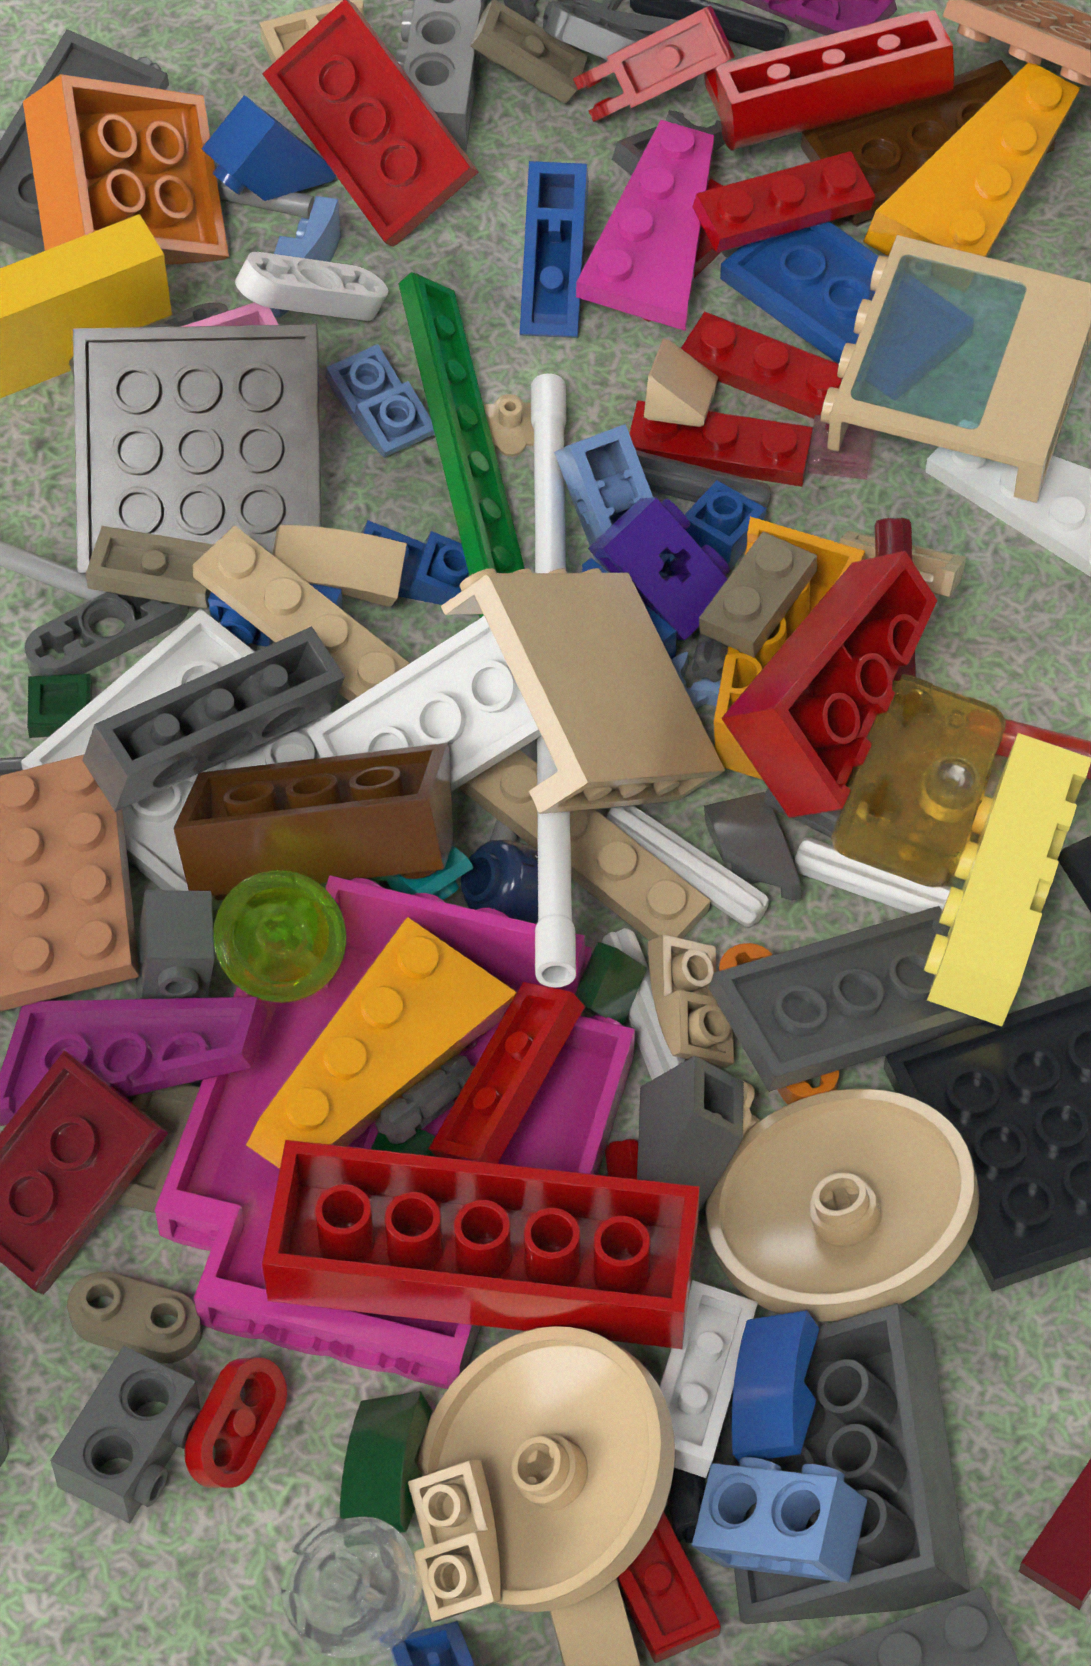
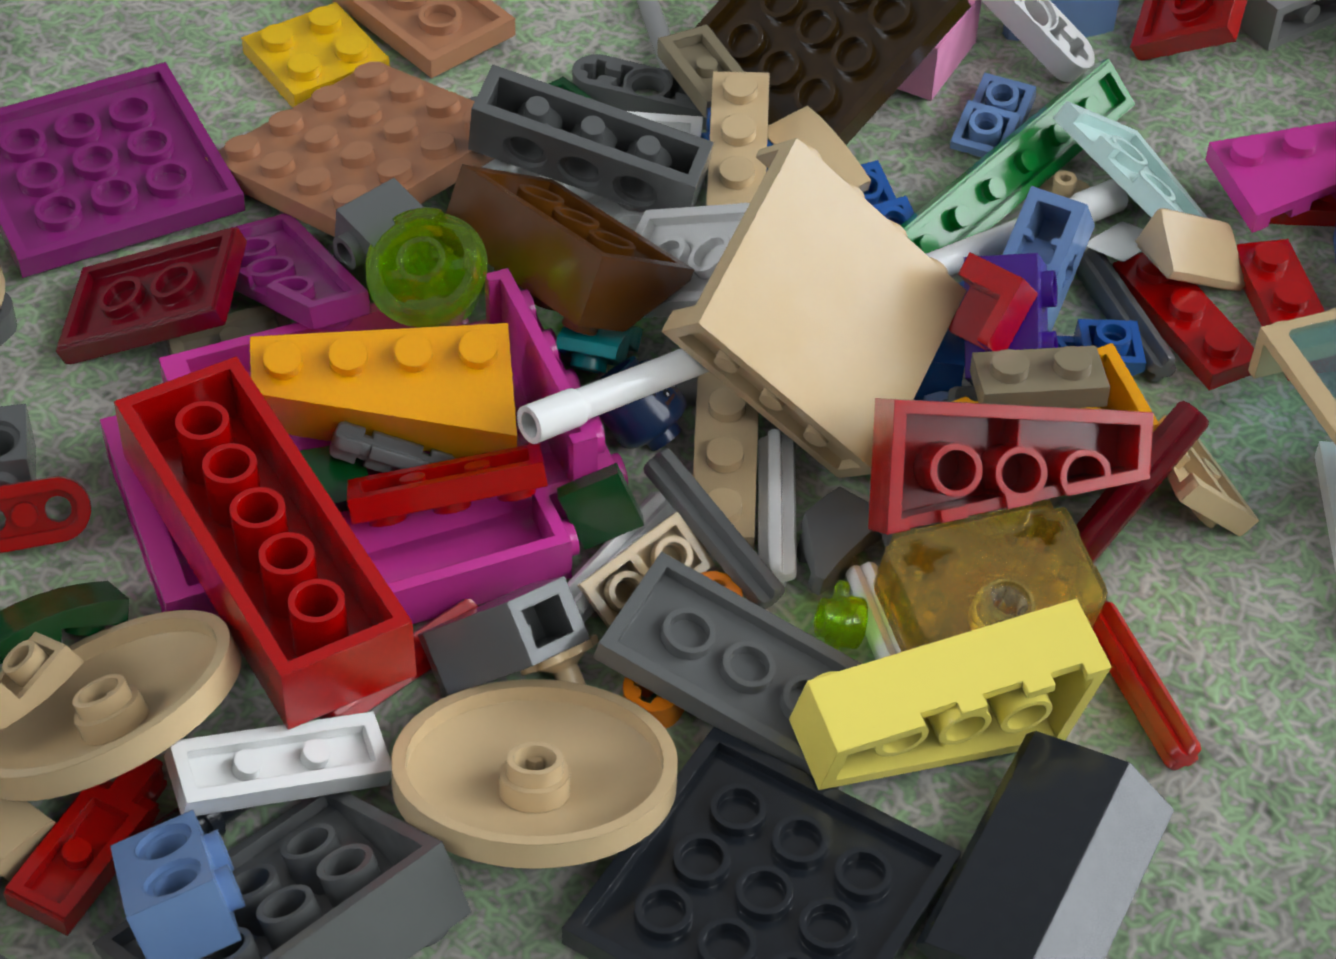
camera: 50 degrees right, 10 degrees down
(132, 1317) = (74, 405): dark tan plate -> none
(553, 248) = (1258, 100): blue slope -> none
(557, 353) = (1127, 160): none -> light aqua wing
(604, 413) = (1117, 241): none -> white sticker
(671, 571) = (992, 305): none -> red panel
(692, 922) = (714, 529): none -> dark grey axle
(769, 1388) = (287, 819): blue slope -> none
(843, 899) = (841, 618): none -> clear neon green plate
(853, 455) = (1265, 396): clear pink tile -> none

